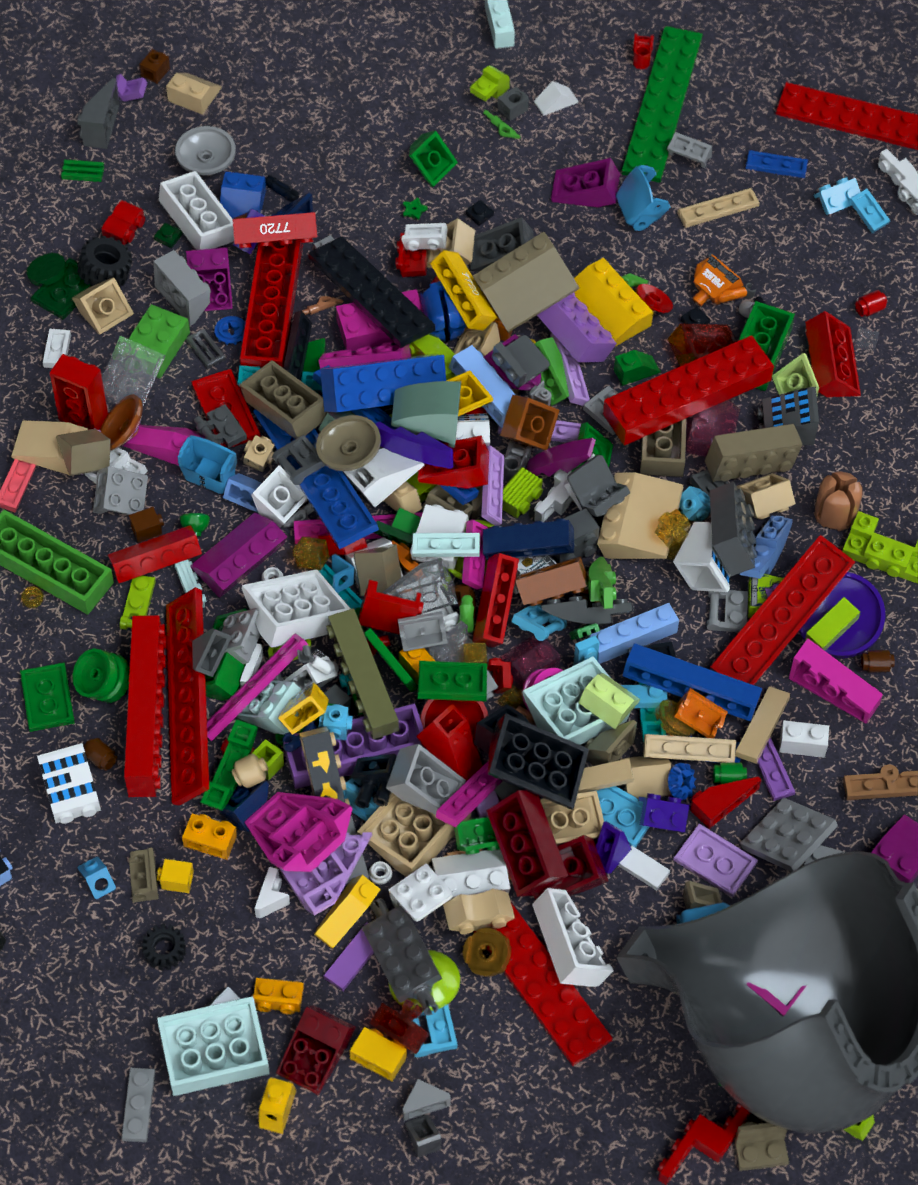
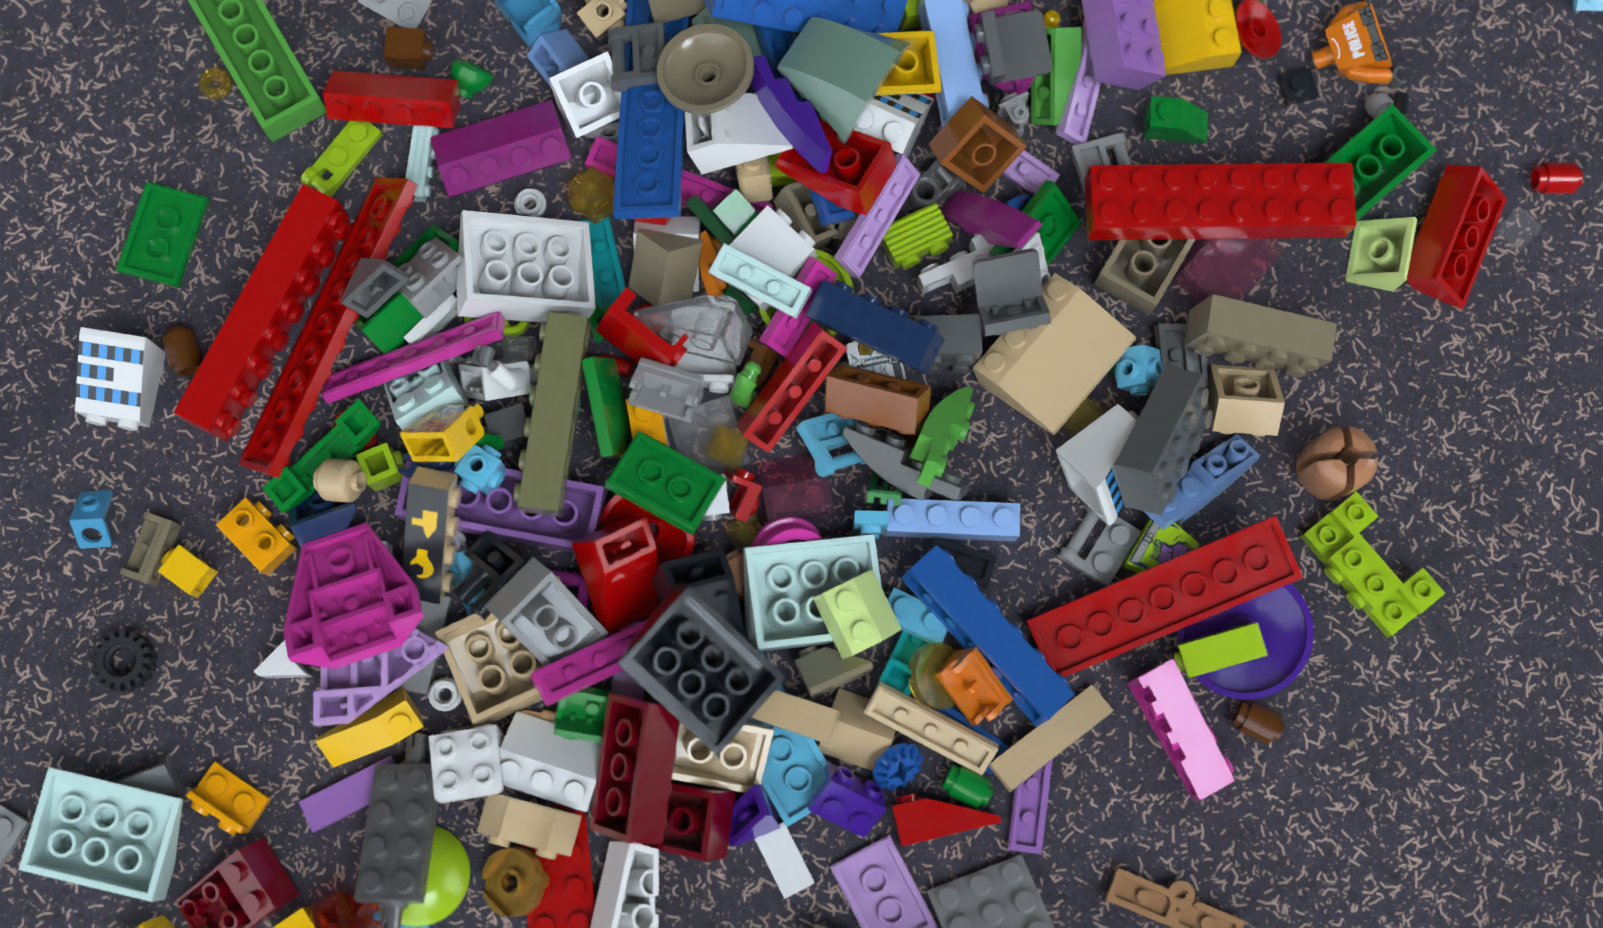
camera: 25 degrees right, 20 degrees up
(101, 675) = (228, 244): green wheel -> none
(342, 570) = (624, 247): dark azure bracket -> none
(672, 528) = (1071, 403): clear yellow brick -> none
(698, 340) = (1284, 131): clear red slope -> none
(792, 408) = (1344, 296): dark grey slope -> none
(804, 739) = (1094, 787): white piece -> none

